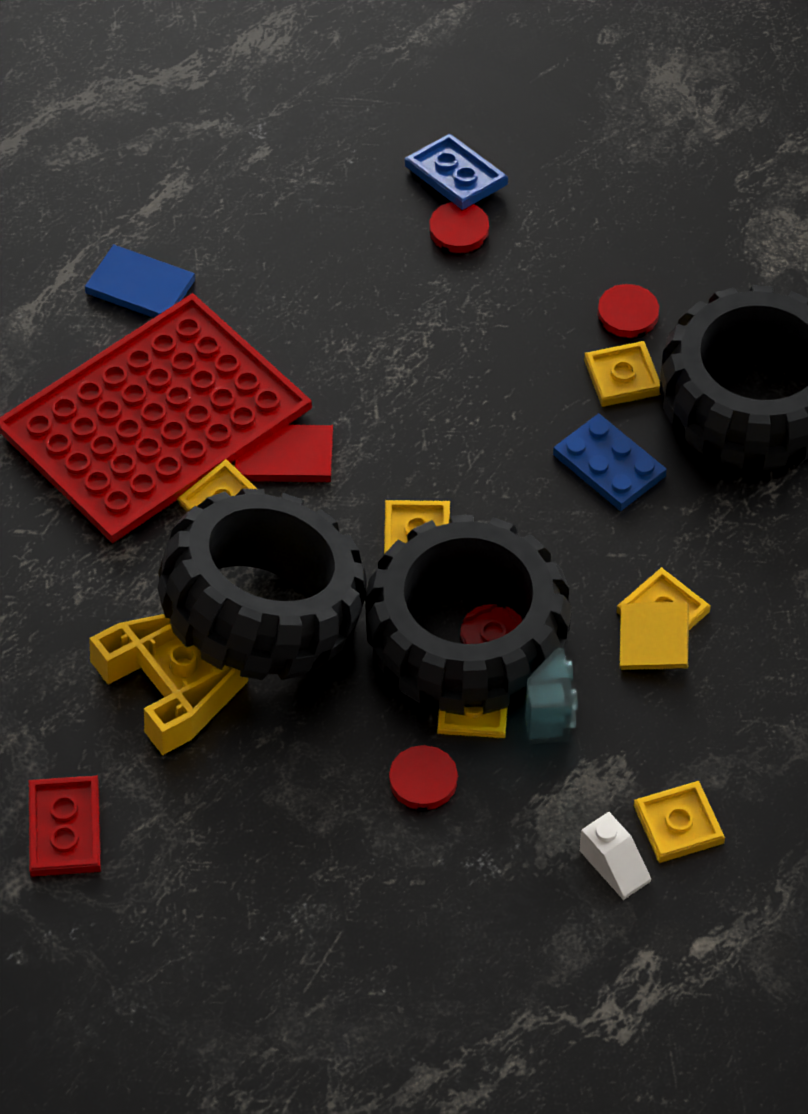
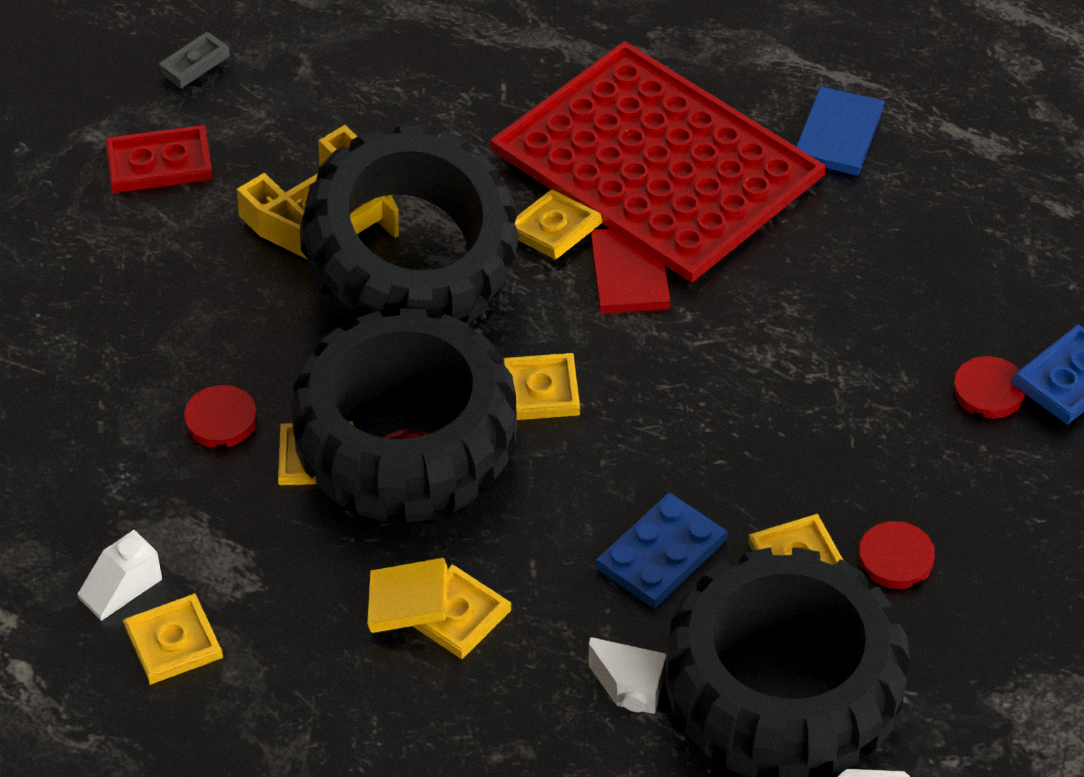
camera: 85 degrees right, 5 degrees down
(551, 701) = (306, 497): clear light blue slope -> none
(745, 490) = (628, 674): none -> white slope

